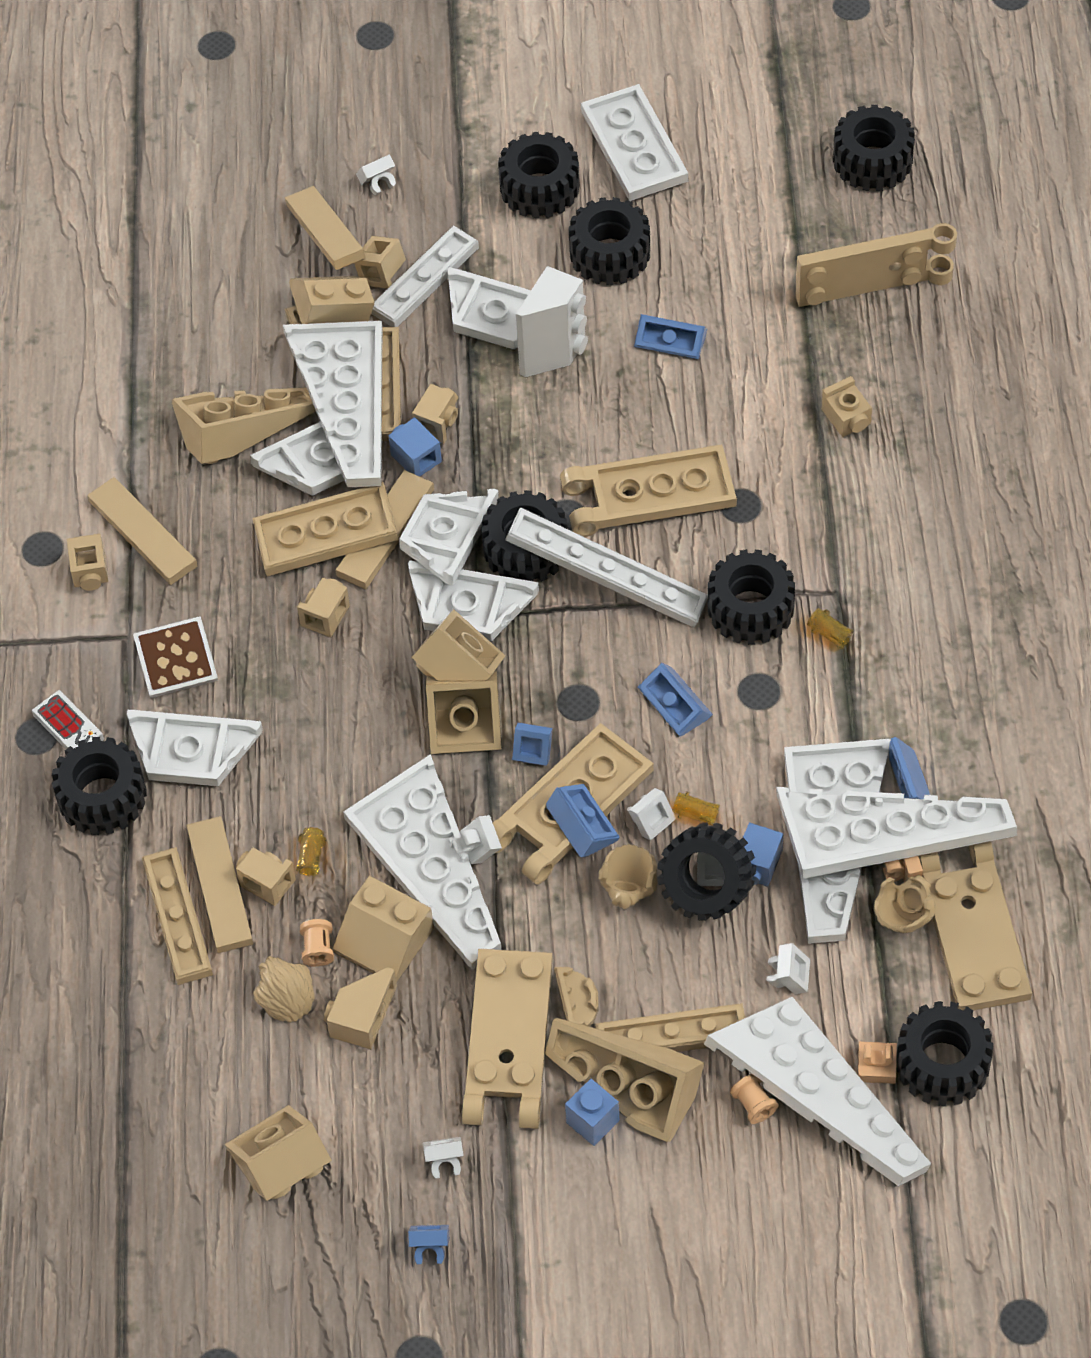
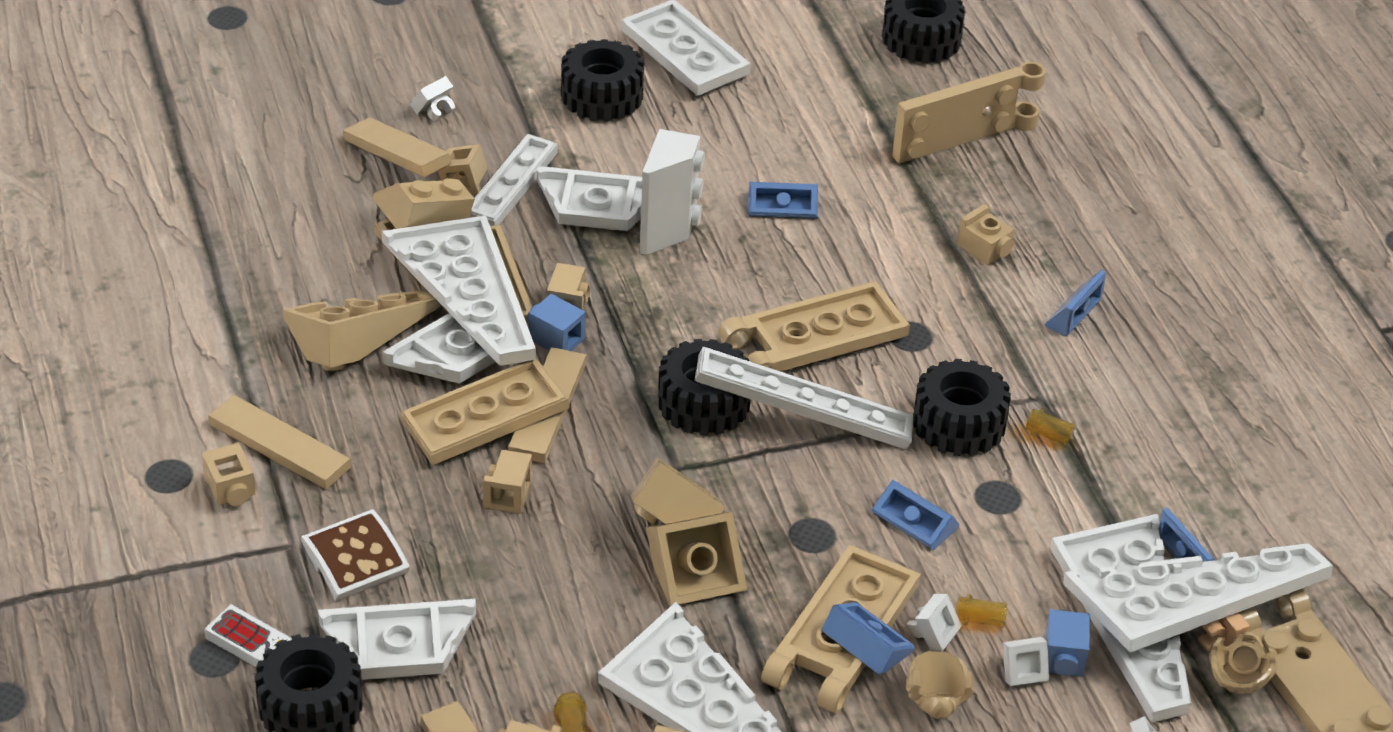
camera: 20 degrees left, 15 degrees down
(445, 531) = (617, 394): white wing -> none
(478, 840) = (762, 674): white tile -> none
(480, 598) = (633, 448): white wing -> none
(532, 744) = (783, 576): medium blue tile -> none
(609, 260) = (702, 113): black tyre -> none
(683, 888) = (1063, 667): black tyre -> none
(907, 499) = (1077, 305): none -> medium blue slope

